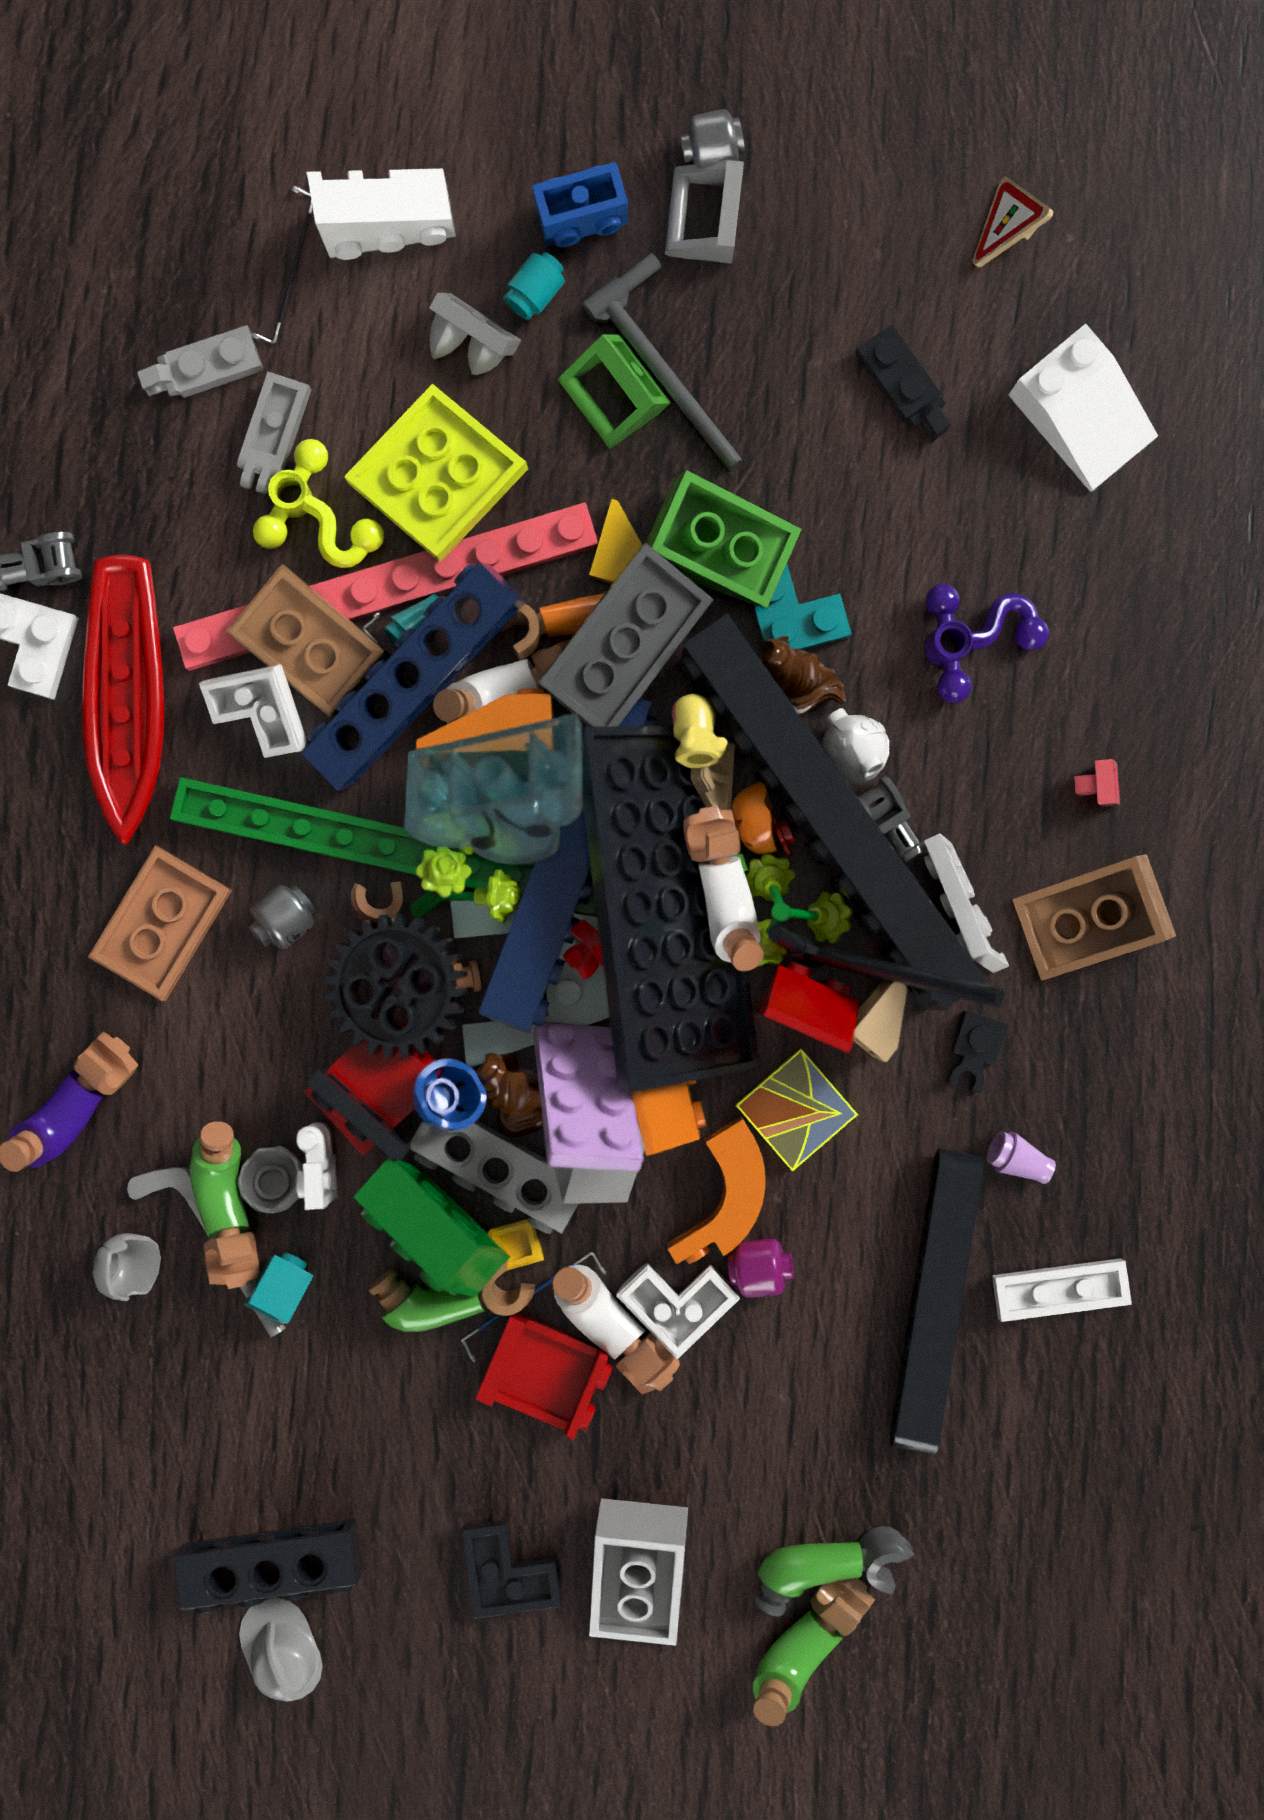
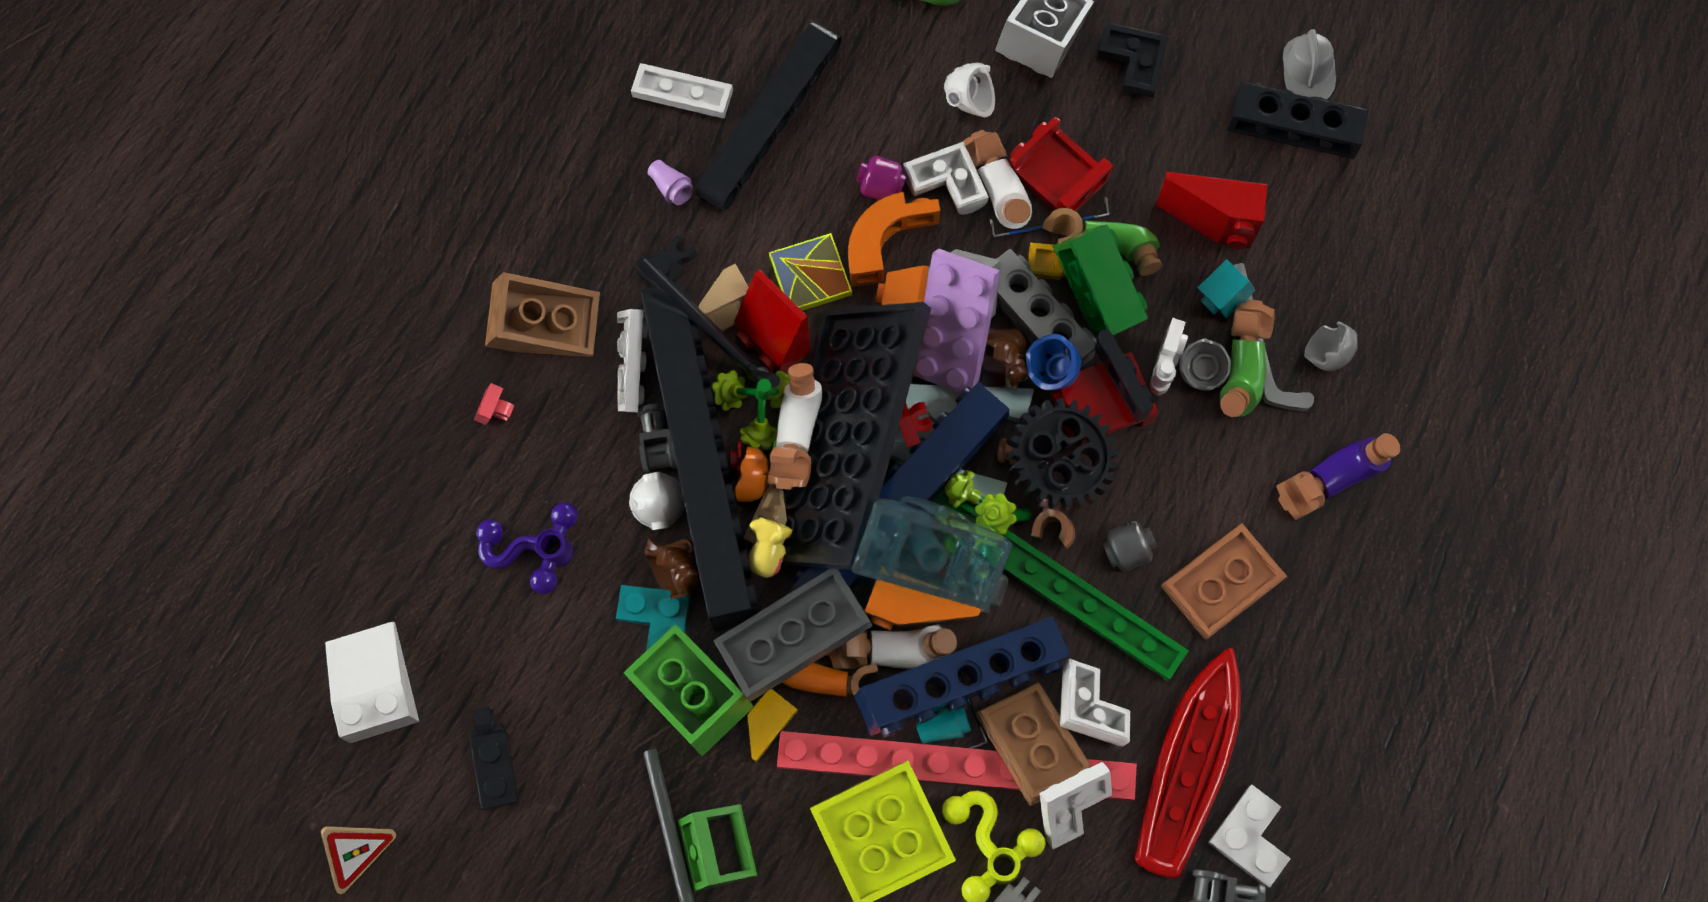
camera: 155 degrees left, 15 degrees down
(244, 576) = (1064, 802): none -> white plate
(322, 1391) = (1216, 207): none -> red slope
(695, 1433) = (967, 94): none -> white helmet

